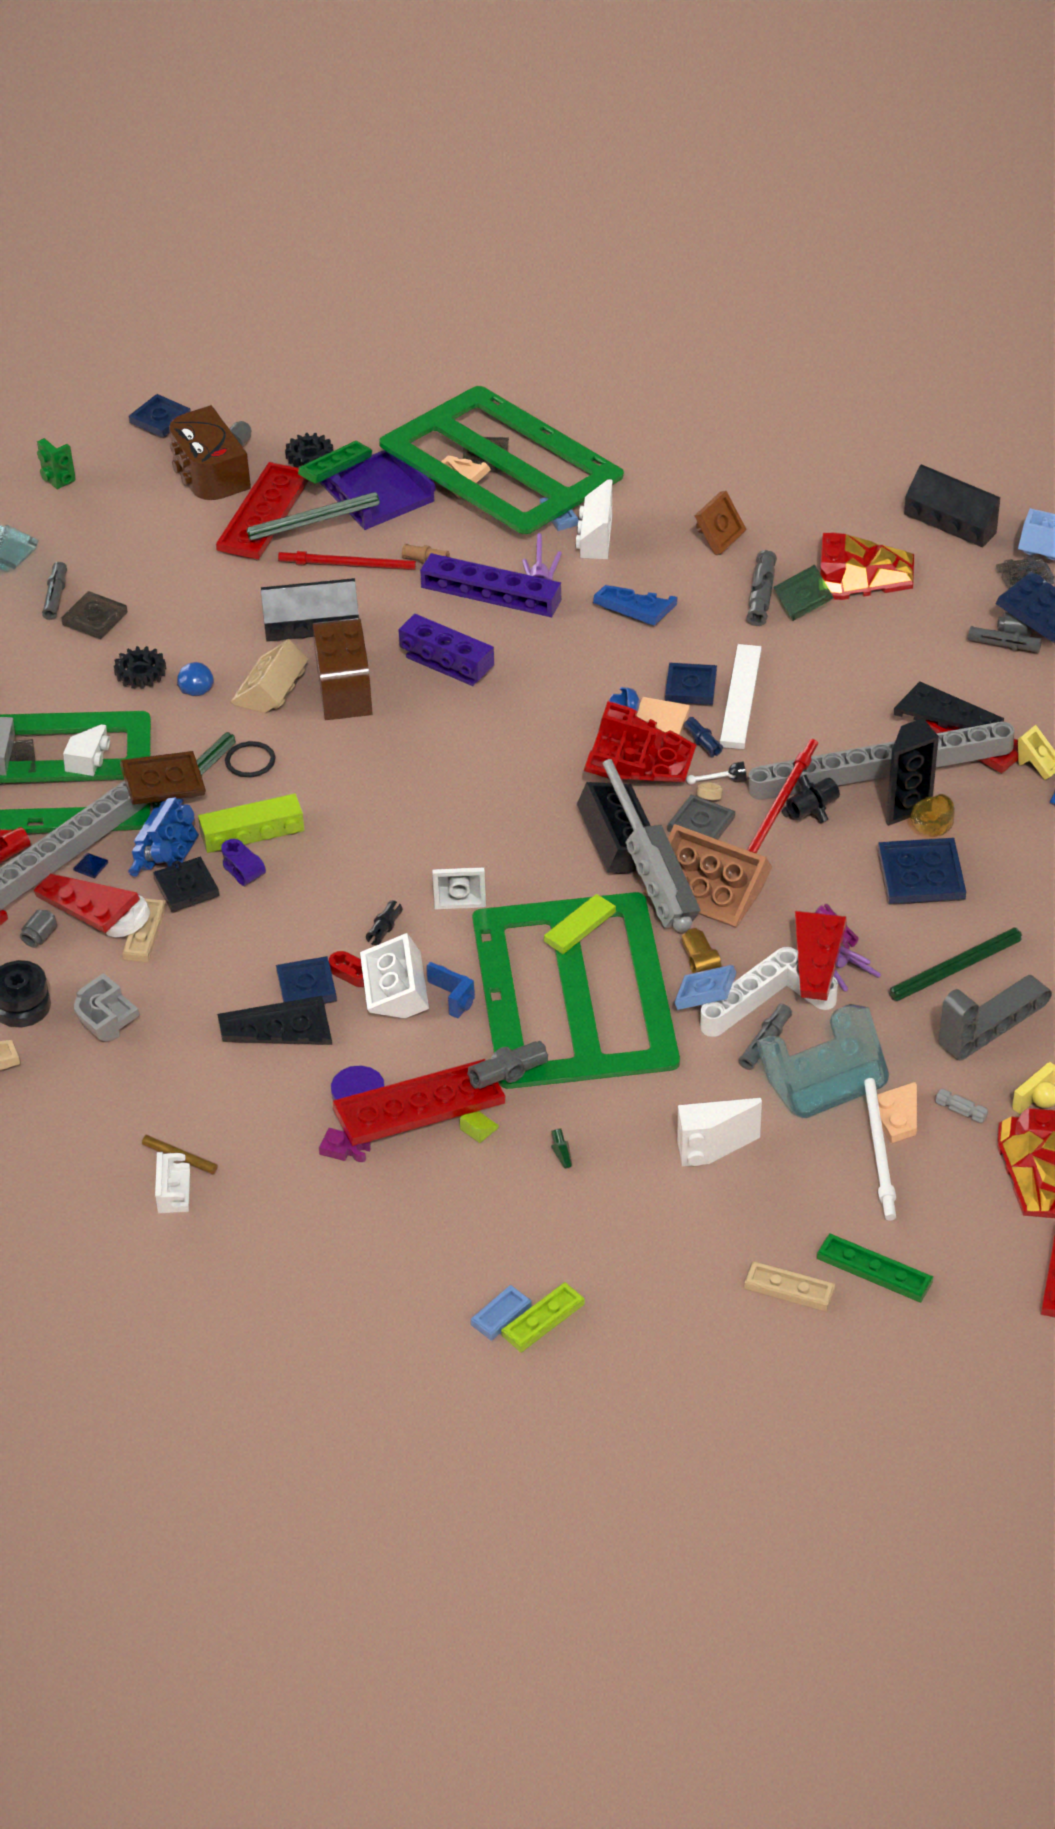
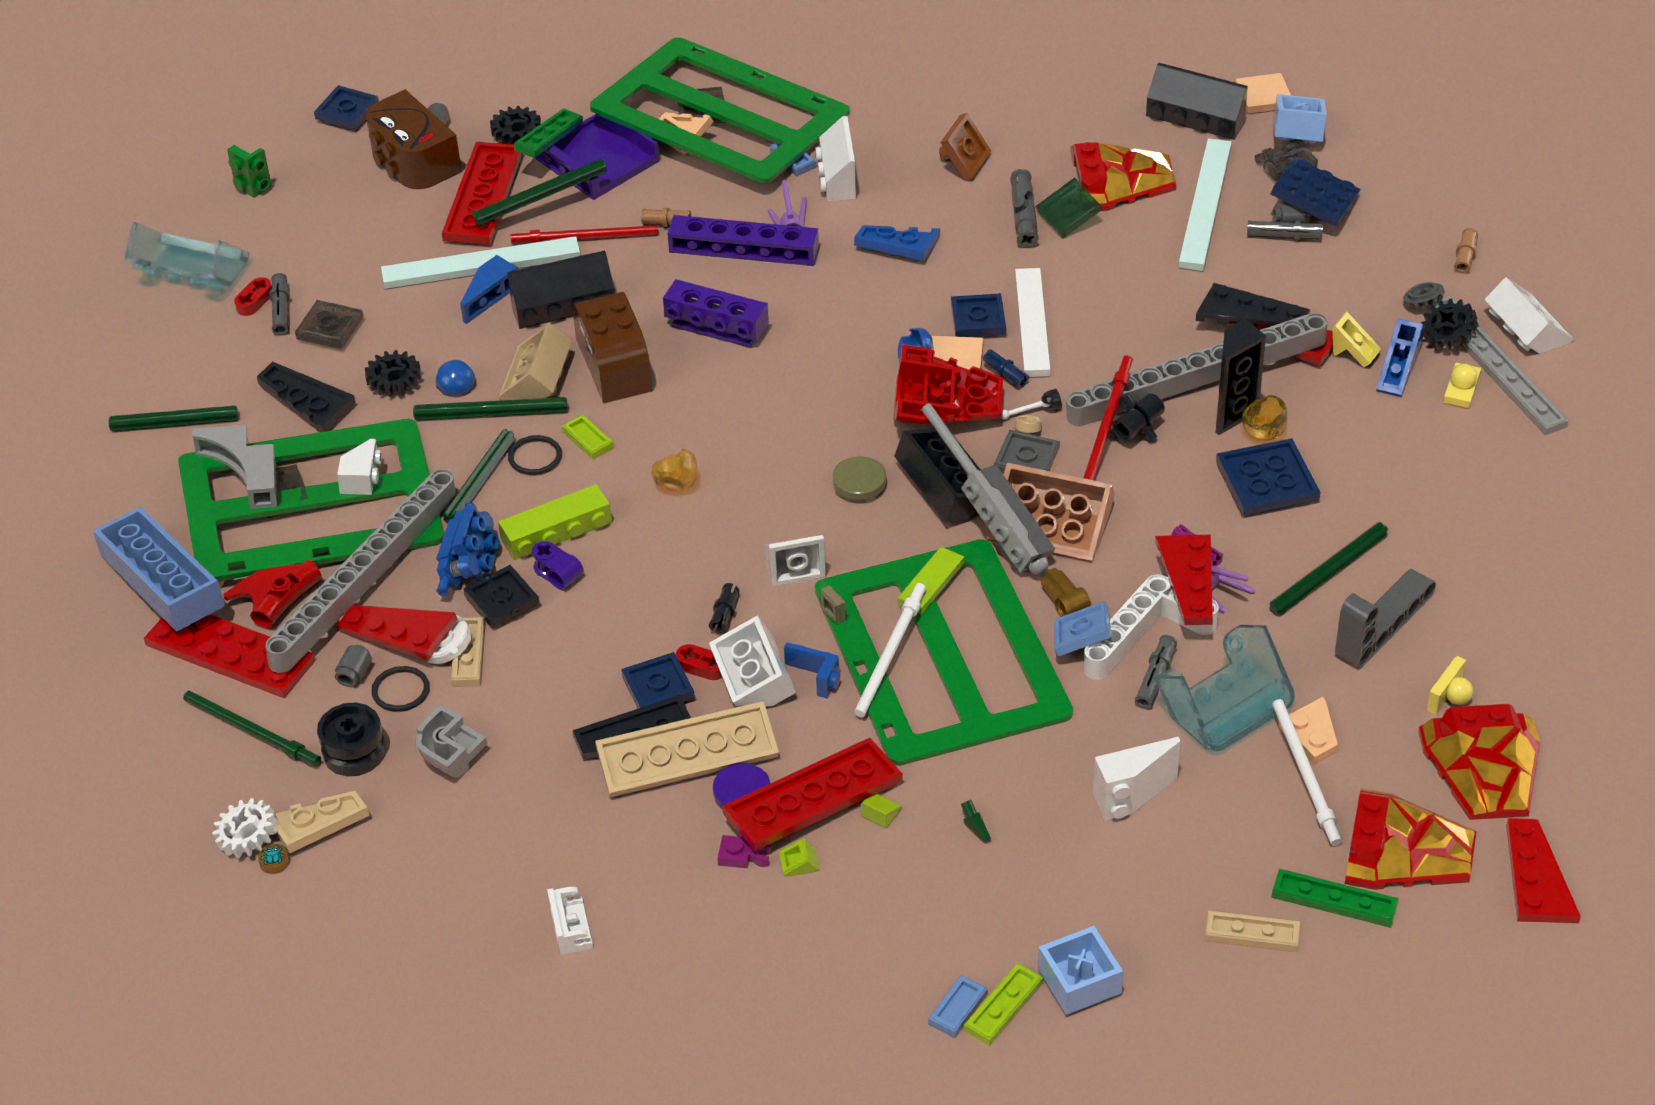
camera: 10 degrees left, 0 degrees up
(32, 580) = (253, 296): none -> red beam
(60, 680) = (310, 398): none -> black wing
(79, 971) = (400, 707): none -> black piece
(90, 865) = (391, 590): clear blue slope -> none
(162, 777) = (451, 486): reddish brown tile -> none
(166, 1148) = (584, 891): pearl gold bar -> none
(220, 711) = (490, 408): none -> dark green axle
(242, 600) = (486, 287): none -> blue slope
(244, 575) = (468, 263): none -> light aqua tile
(302, 749) = (587, 437): none -> lime tile
(315, 1045) = (686, 749): none -> tan plate
(371, 791) = (675, 471): none -> clear yellow hair
(393, 1159) = (799, 858): none -> lime slope
(482, 933) = (833, 605): none -> dark tan tile
(507, 1064) = (898, 739): dark grey piece -> none
(539, 821) = (859, 479): none -> olive tile
(551, 948) = (909, 609): none -> white bar
(617, 1296) = (1080, 970): none -> light blue brick
(935, 606) = (1205, 205): none -> light aqua tile
(954, 1227) = (1406, 844): none -> wedge
(962, 1105) = (1376, 714): light grey axle -> none
(1017, 502) = (1263, 91): none -> light nougat tile

